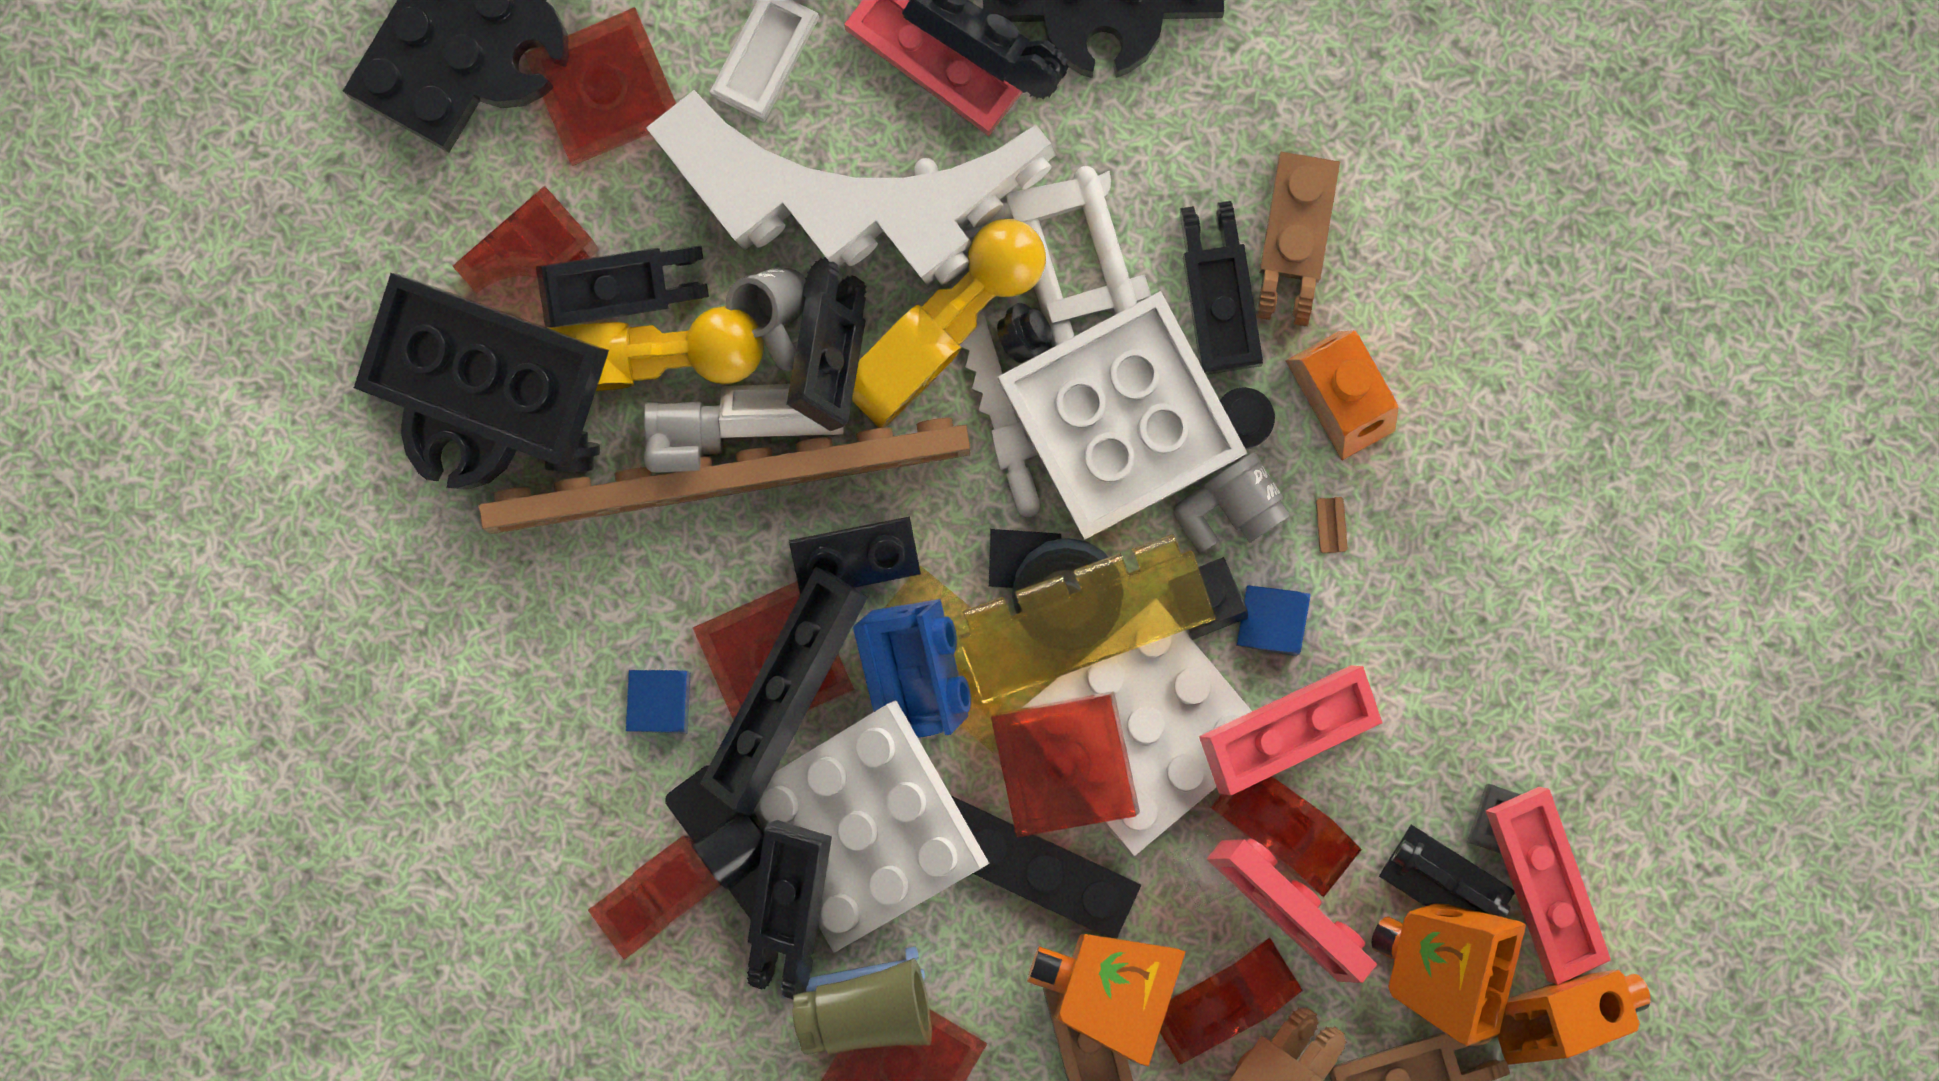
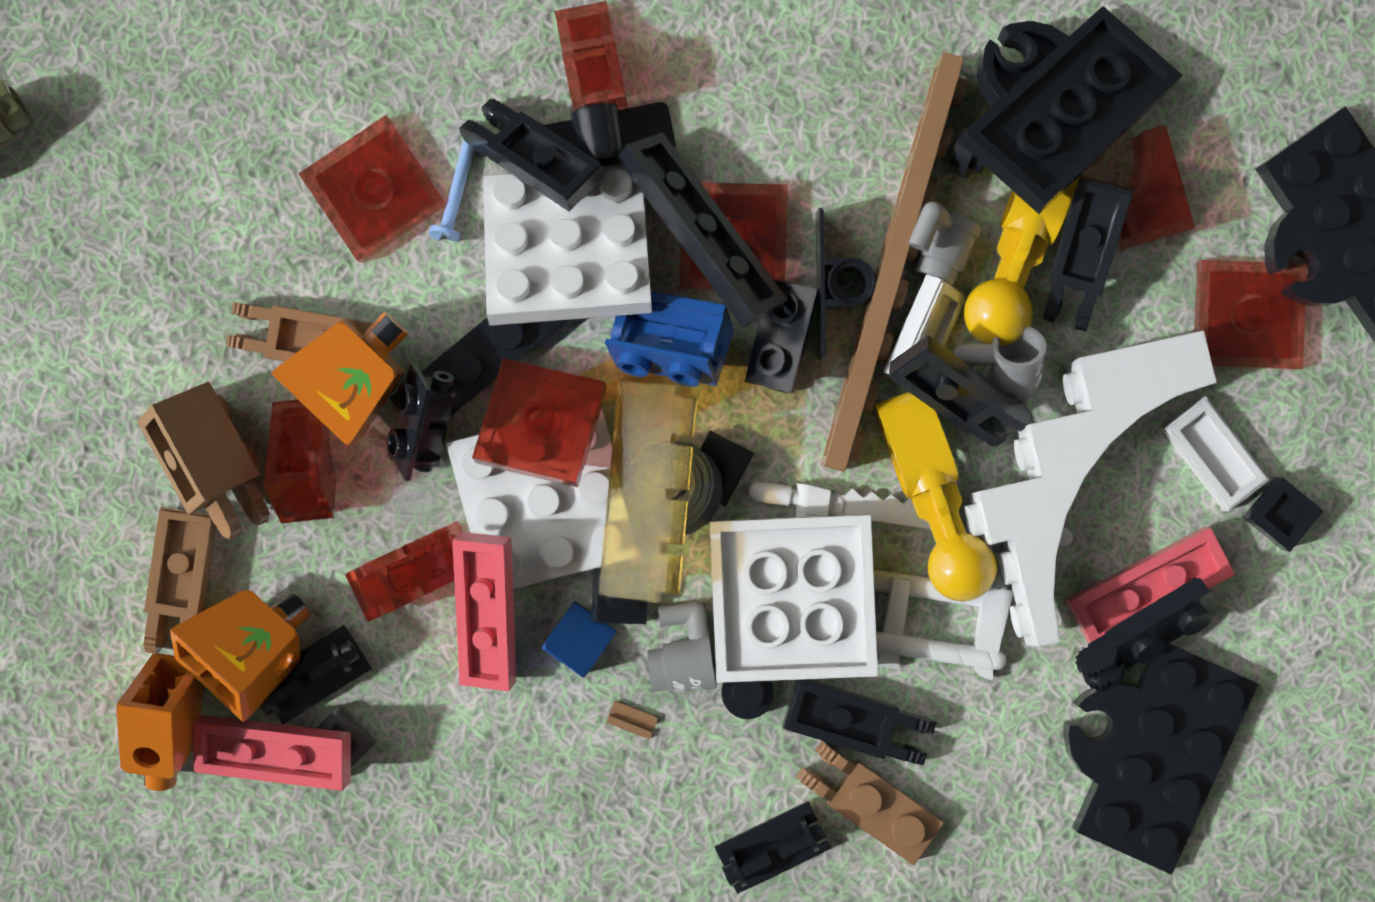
camera: 115 degrees right, 5 degrees up
(658, 701) = (742, 132): blue slope -> none
(774, 539) = (826, 273): none -> black piece
(865, 1012) = (421, 175): olive plant -> none
(1024, 332) = (896, 552): black plate -> none
(1146, 892) = (419, 400): none -> black hinge
(1293, 909) = (345, 546): coral plate -> none
(1346, 392) = (730, 783): orange torso -> none
(1392, 315) = (772, 847): none -> black hinge

